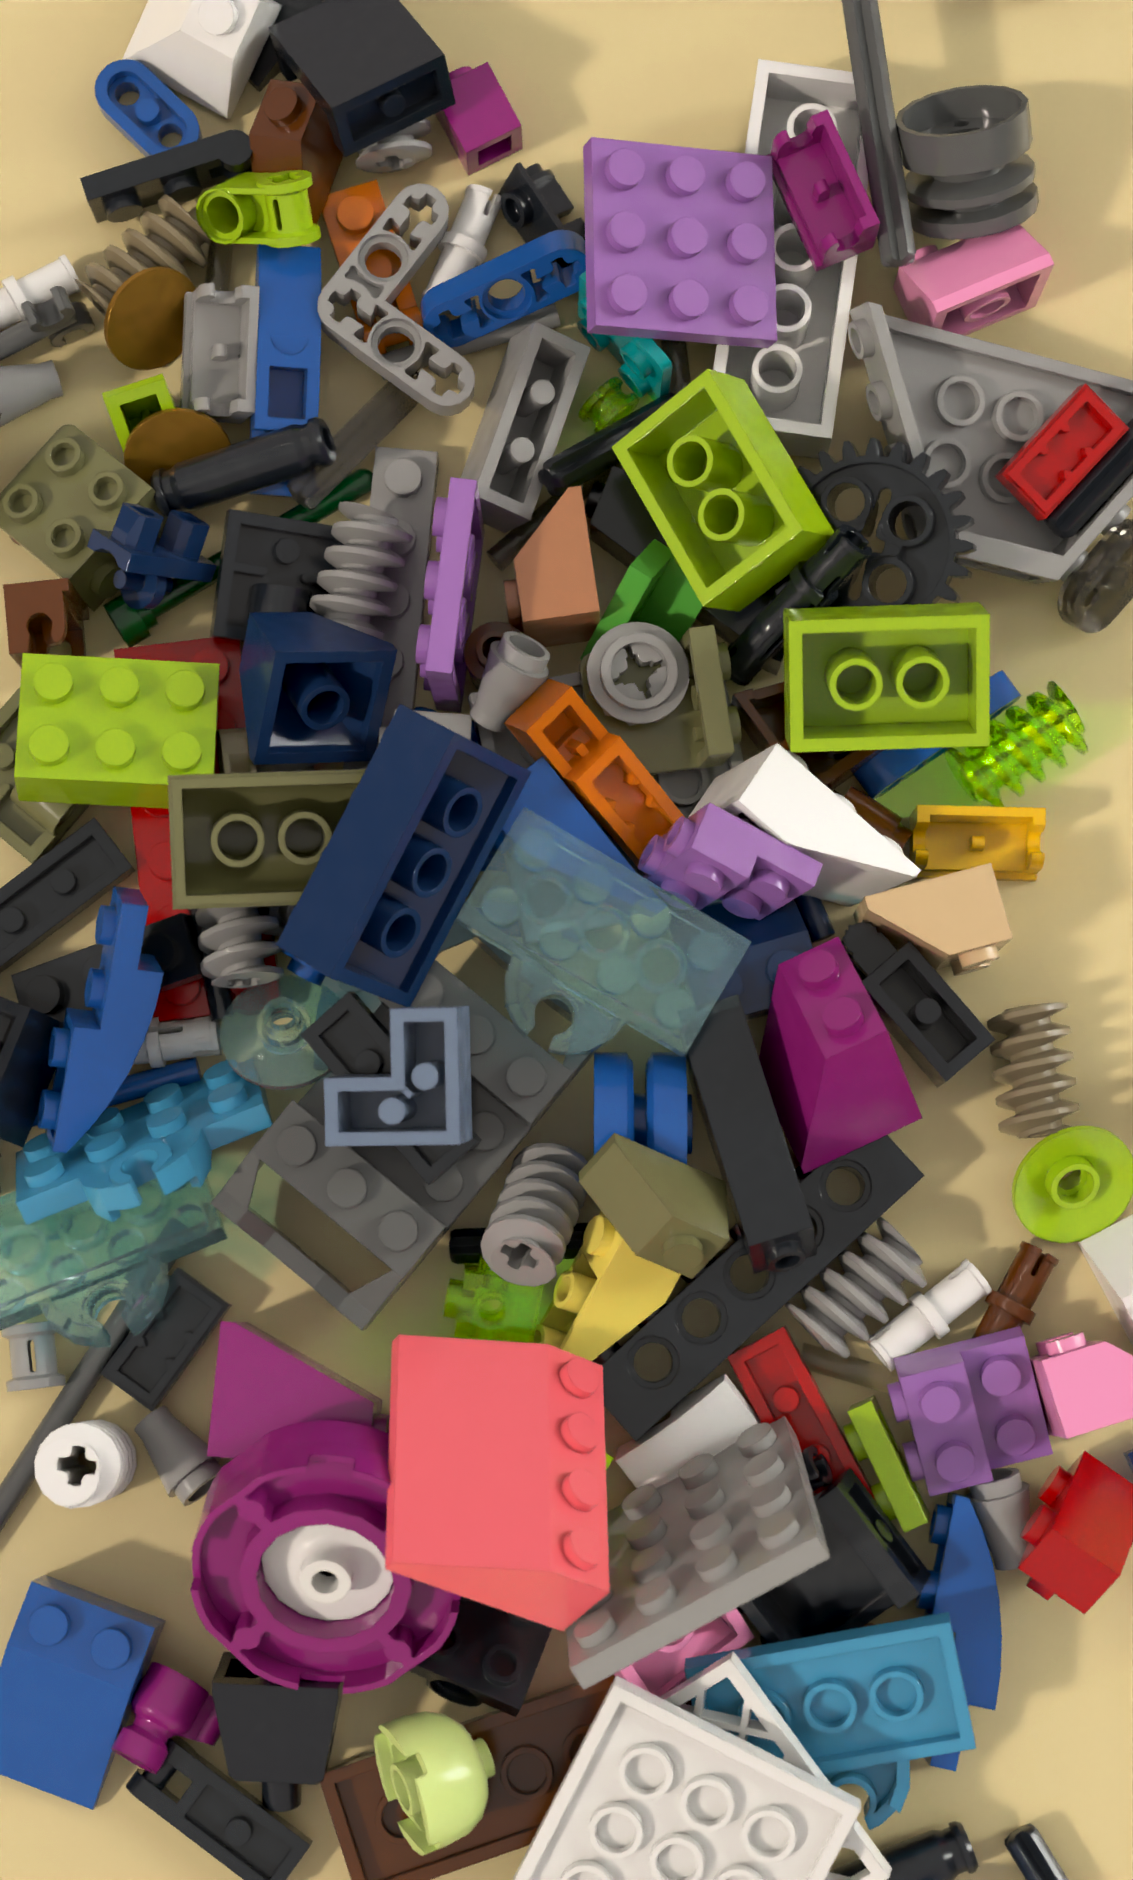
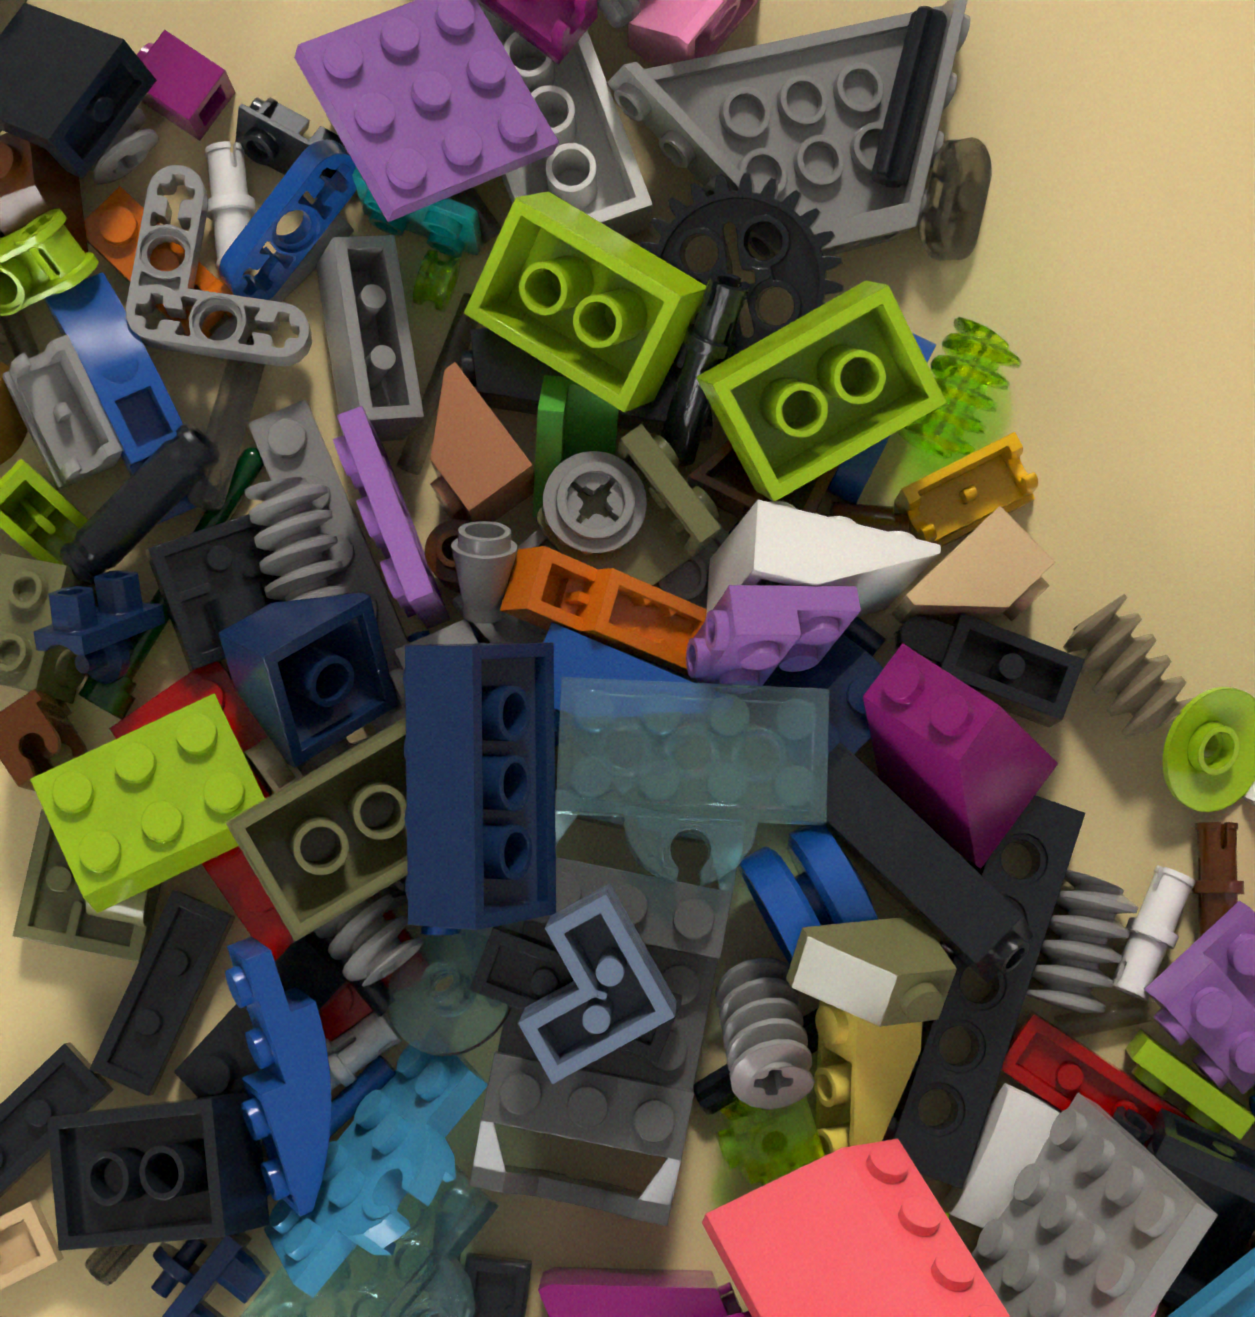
camera: 30 degrees left, 0 degrees up
(171, 438) = (59, 513): pearl gold piece -> none
(592, 454) = (450, 323): black axle -> none
(1062, 452) = (859, 112): red plate -> none

